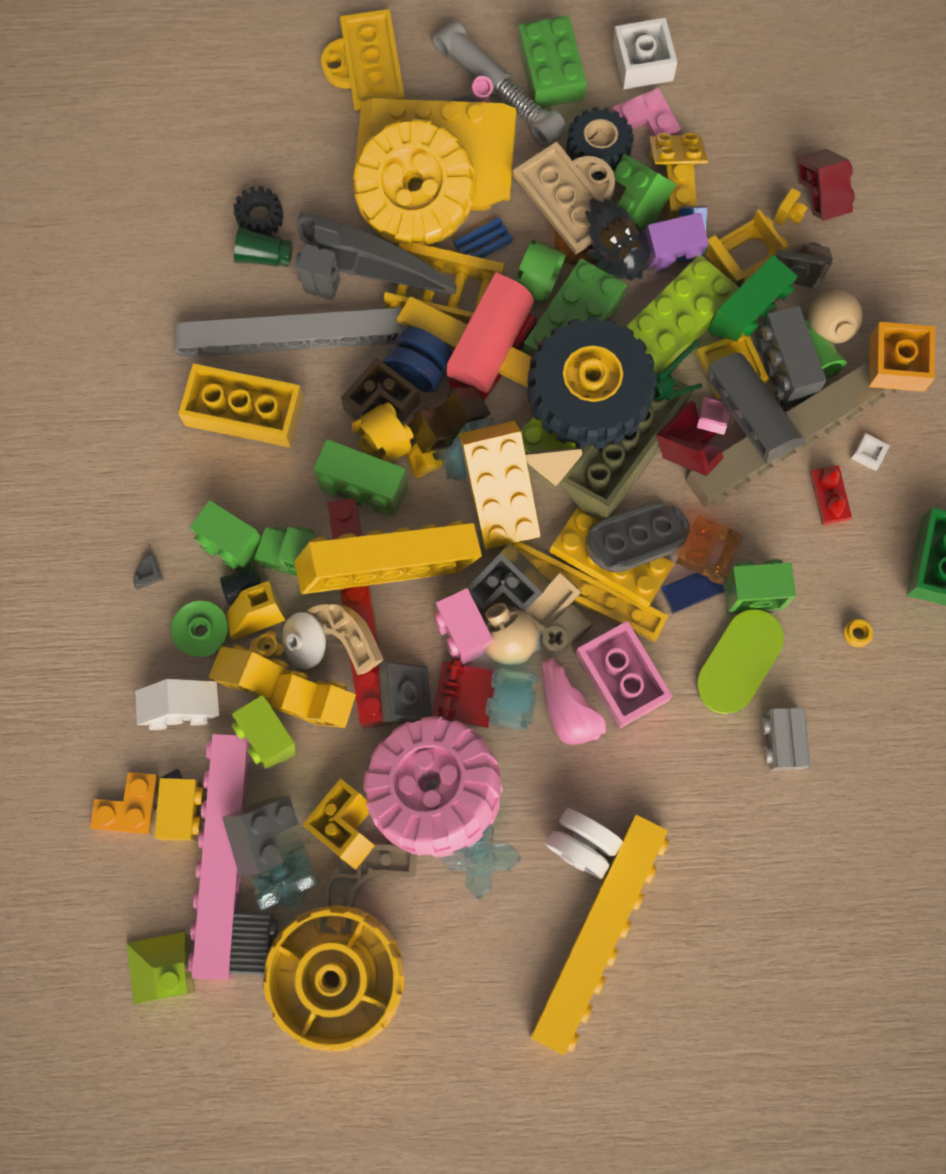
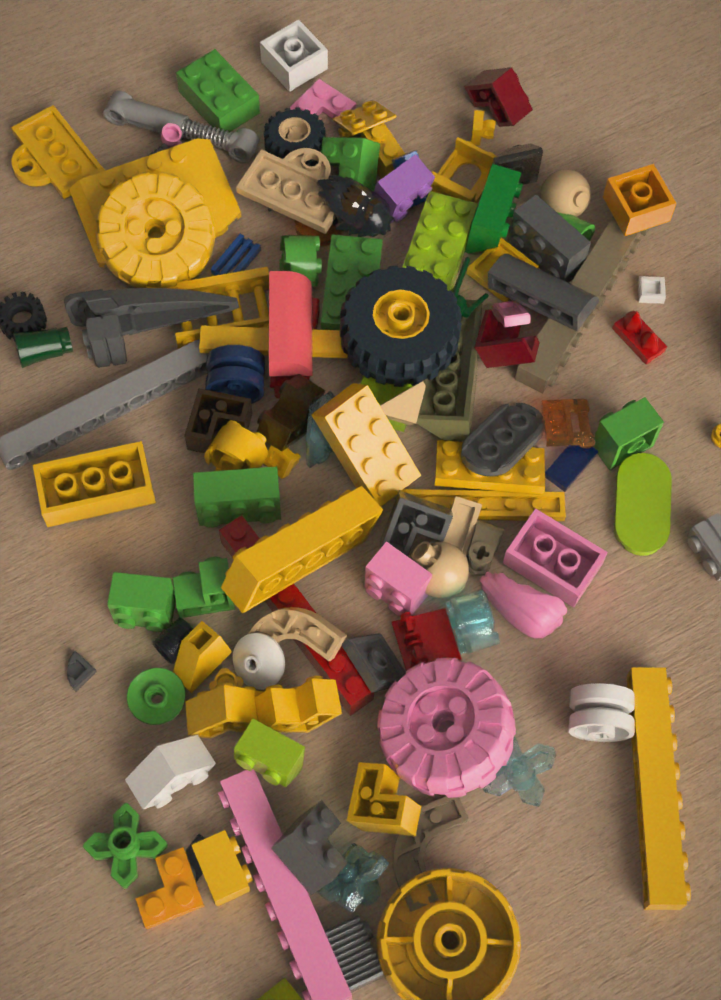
camera: 30 degrees left, 10 degrees down
(101, 762) = (141, 845): none -> bright green plant

